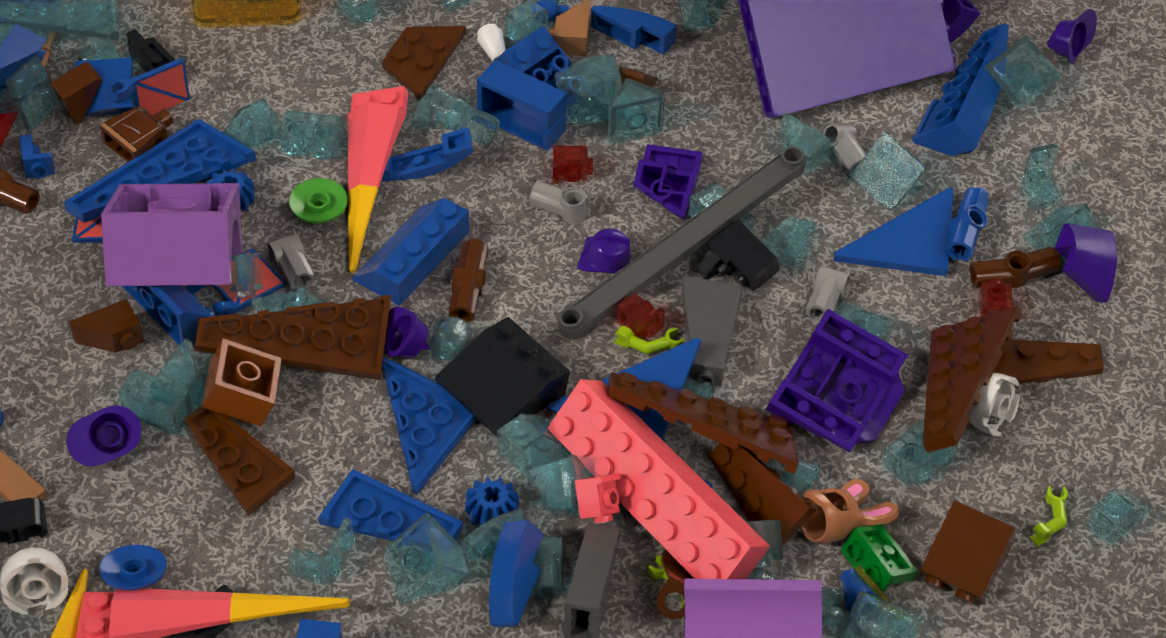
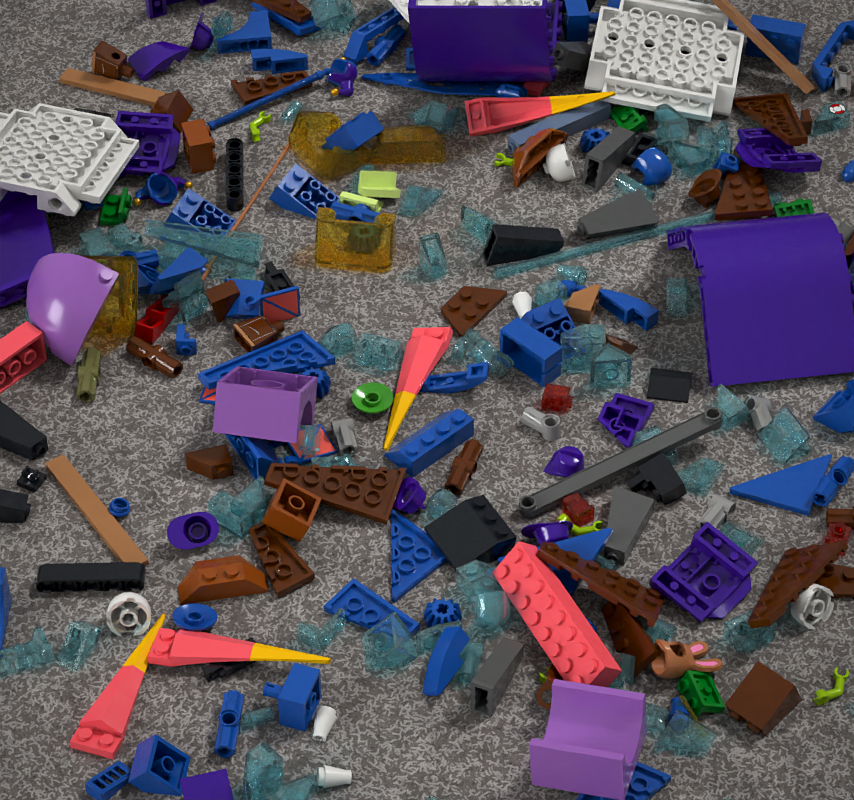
camera: 15 degrees right, 5 degrees down
(159, 502) = (220, 580): none -> dark orange wedge
(598, 497) = (513, 621): coral brick -> none
(610, 357) = (548, 531): none -> dark purple piece
(714, 123) = (669, 385): none -> black slope

